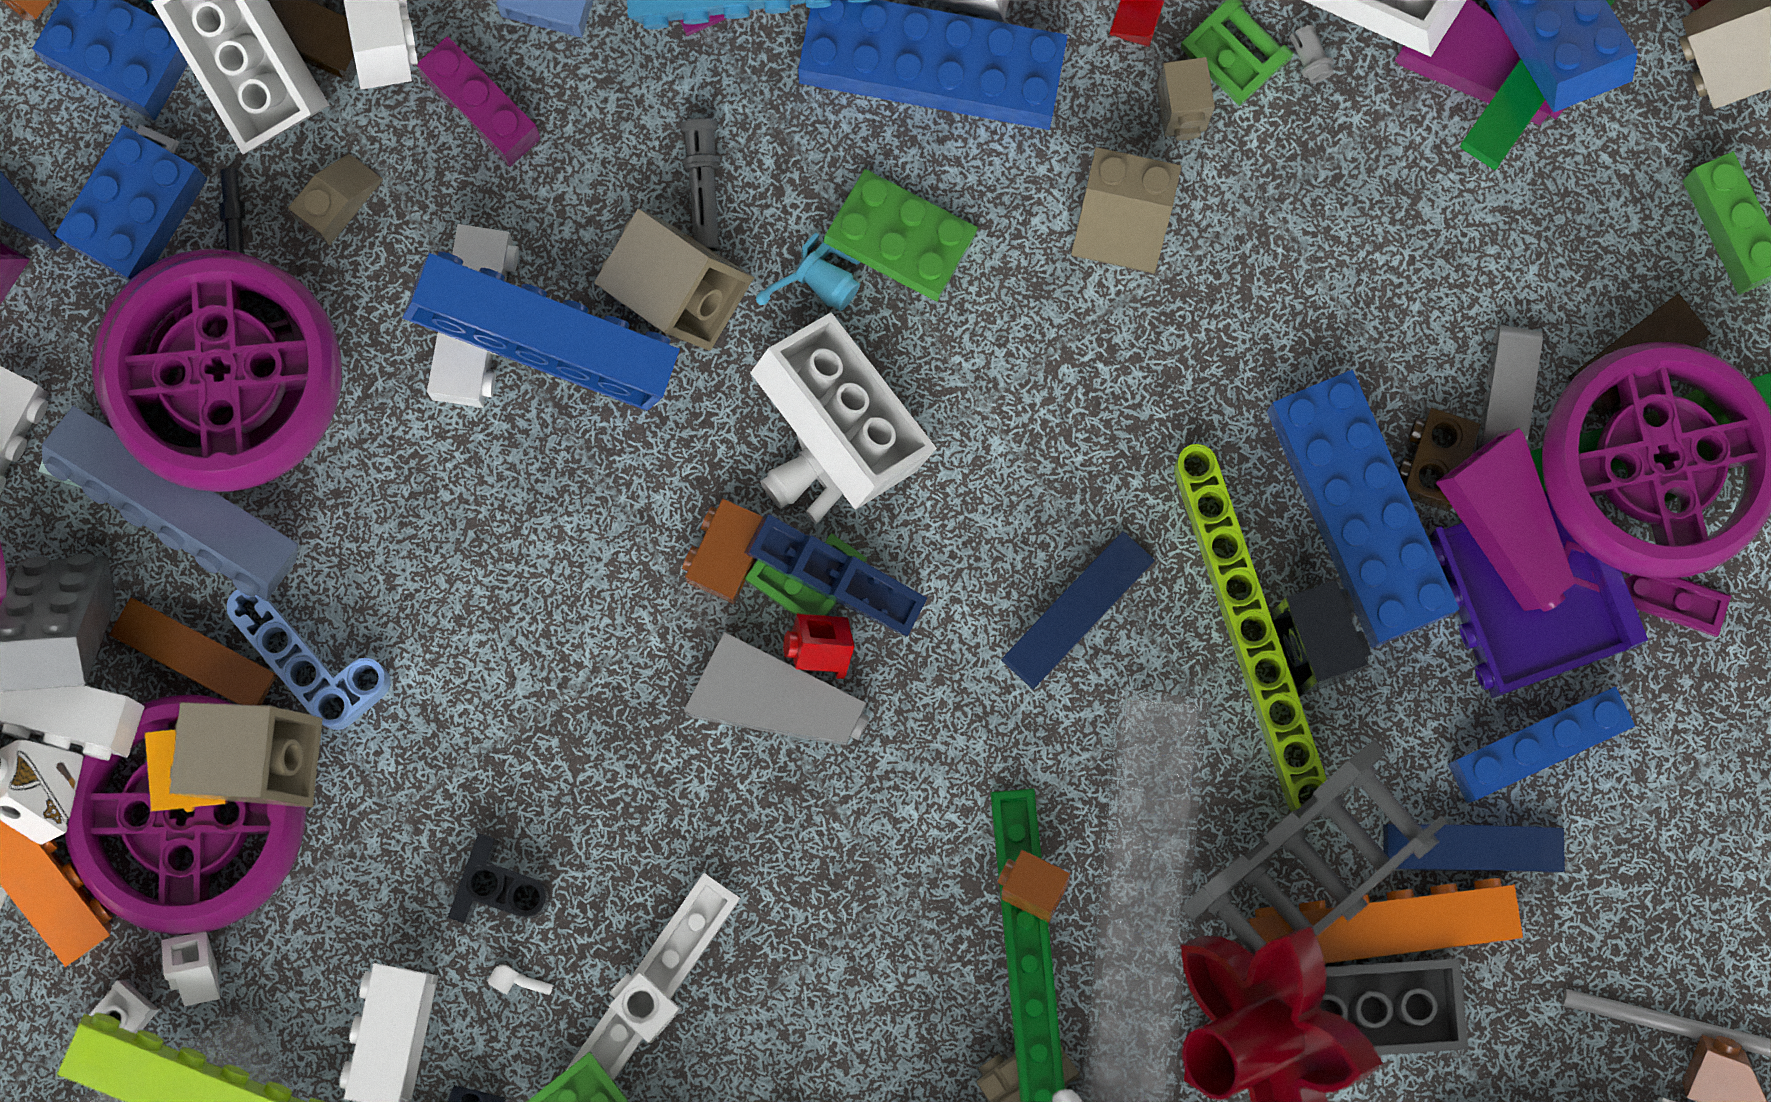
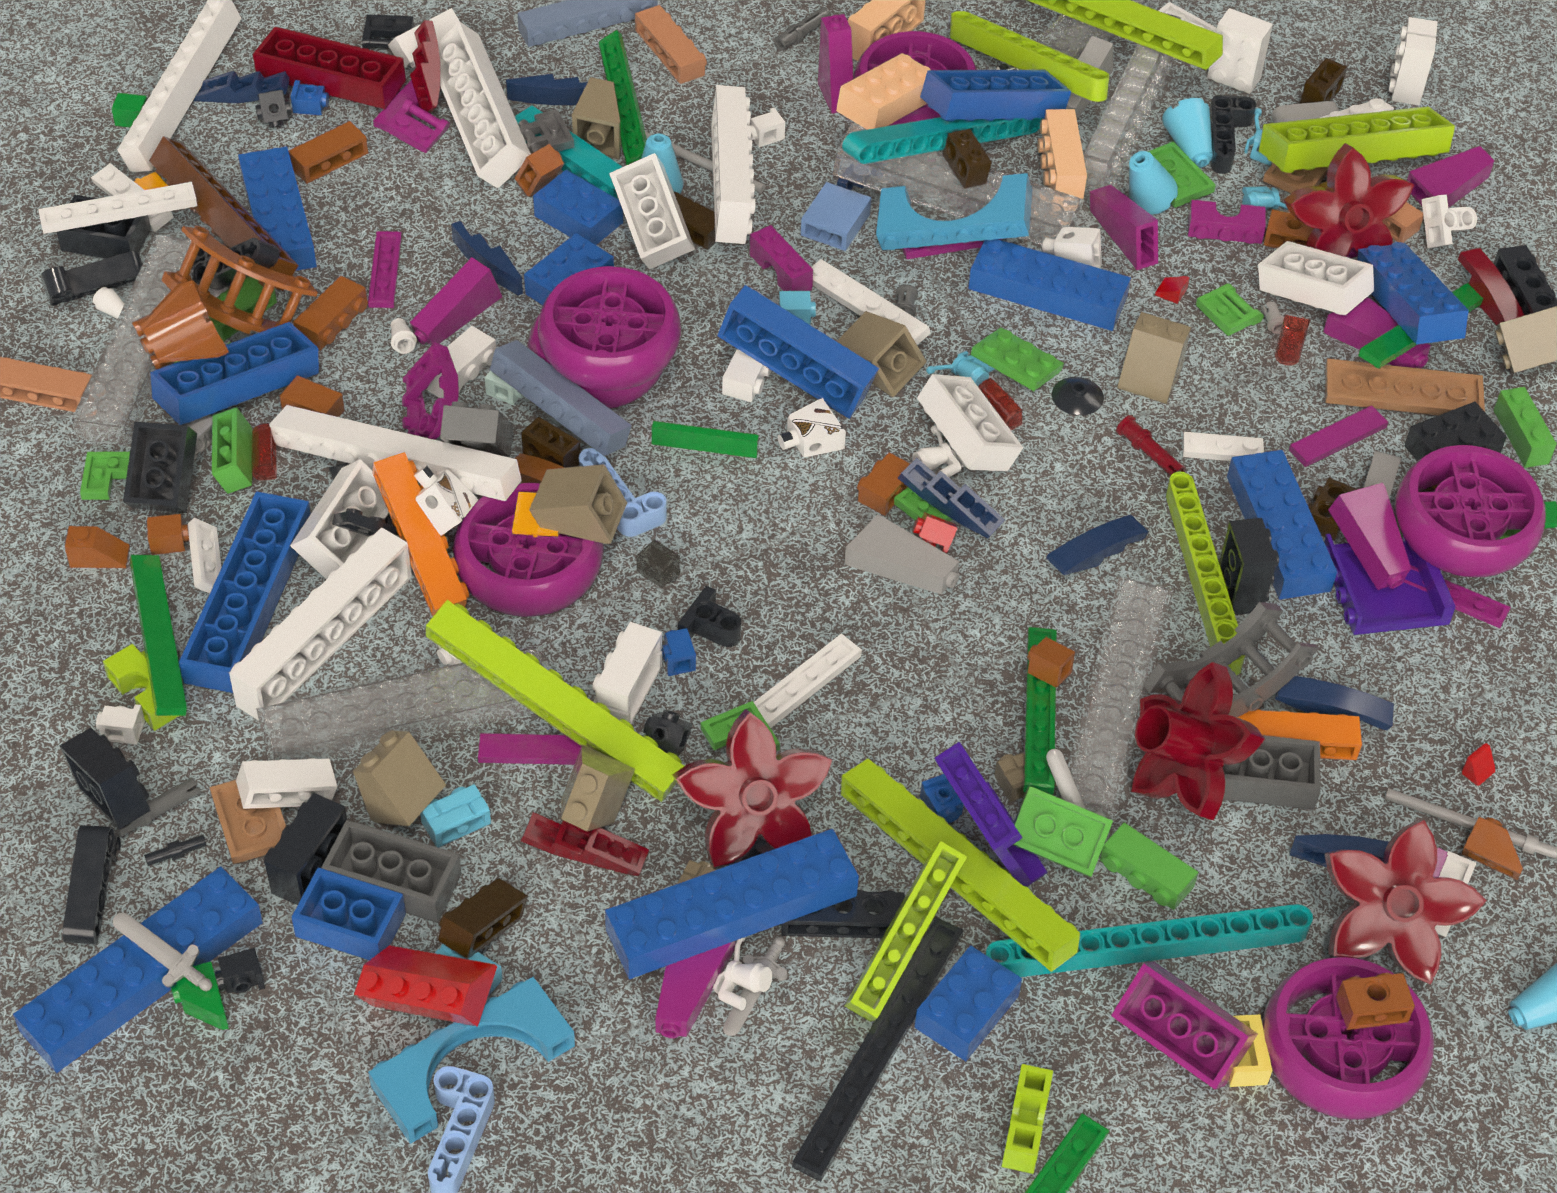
camera: 10 degrees right, 30 degrees down
(177, 592) = (550, 443): none -> dark brown brick
(191, 968) = (513, 623): white brick -> none
(334, 197) = (687, 291): dark tan slope -> none
(396, 791) = (658, 564): none -> clear smoke brick
(421, 516) = (705, 439): none -> green tile
(457, 957) = (678, 652): none -> blue brick
(504, 977) = (705, 669): white hand -> none
(521, 199) = (798, 304): none -> medium azure brick
(592, 462) = (813, 430): none -> white torso
(636, 167) = (861, 299): none -> white plate
(663, 1011) = (792, 685): white brick -> none
(884, 345) = (1002, 403): none -> clear red brick
(1008, 307) = (1077, 396): none -> black dish
(1125, 371) = (1142, 439): none -> dark red pin
(1185, 98) = (1197, 314): dark tan brick -> none
(1255, 354) = (1219, 446): none -> white plate
(1345, 118) = (1291, 340): none -> clear red brick
(1437, 292) = (1338, 436): none -> magenta tile
(1541, 175) = (1400, 387): none -> medium nougat plate
(1541, 745) = (1382, 655): blue brick -> none
(1626, 276) = (1457, 427): none -> black brick
(1699, 922) = (1479, 765): none -> red slope

